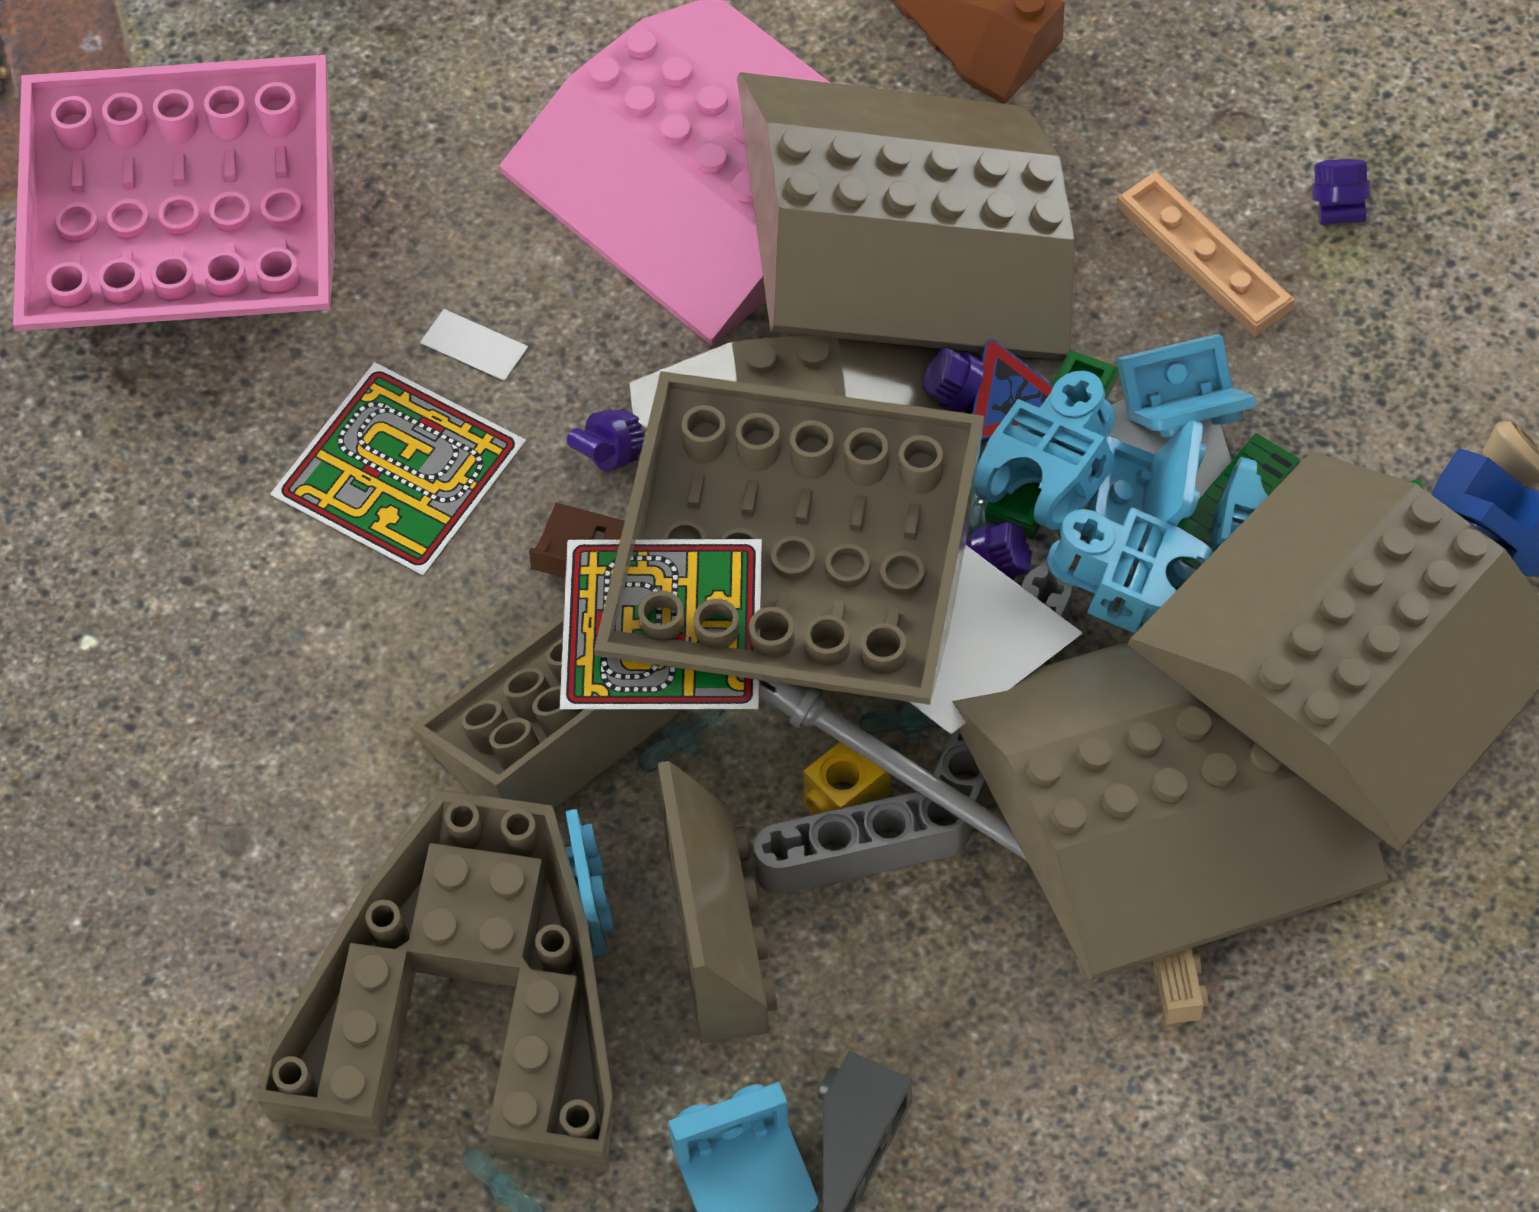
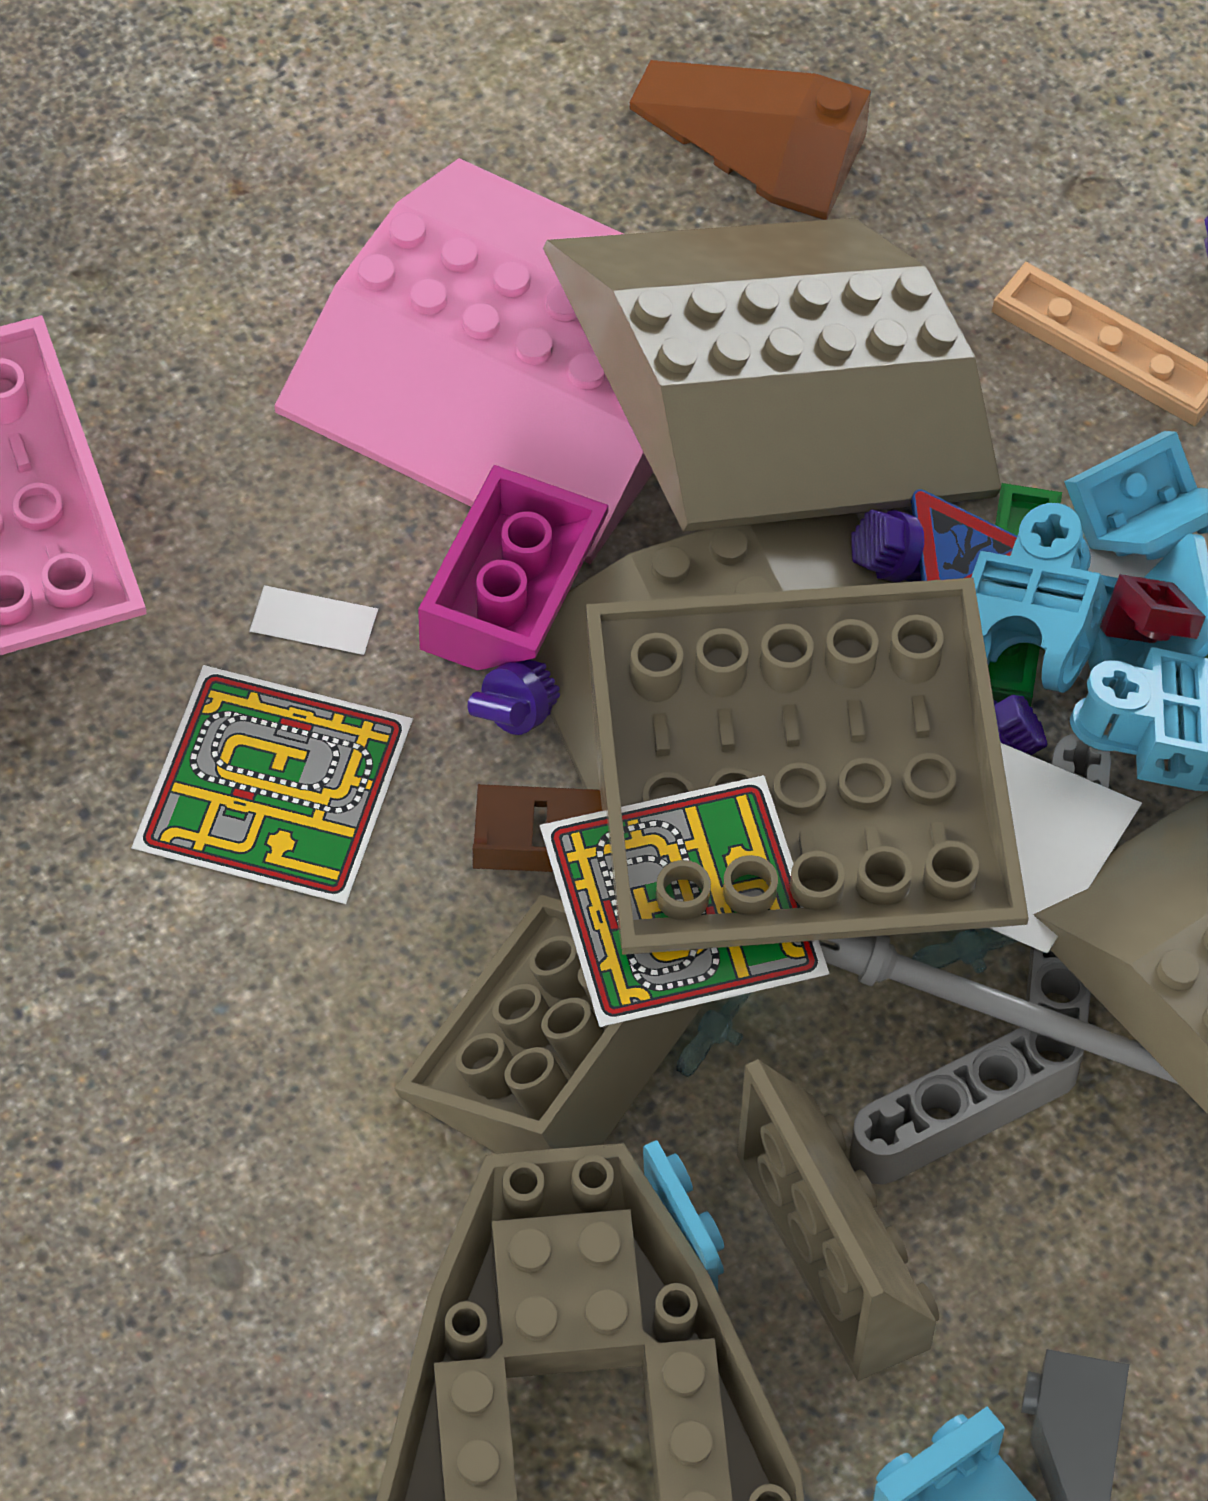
camera: 20 degrees left, 0 degrees up
(629, 334) = (507, 571): none -> dark pink slope
(843, 765) = (928, 1016): yellow brick -> none
(1142, 477) = (1150, 611): none -> dark red bracket

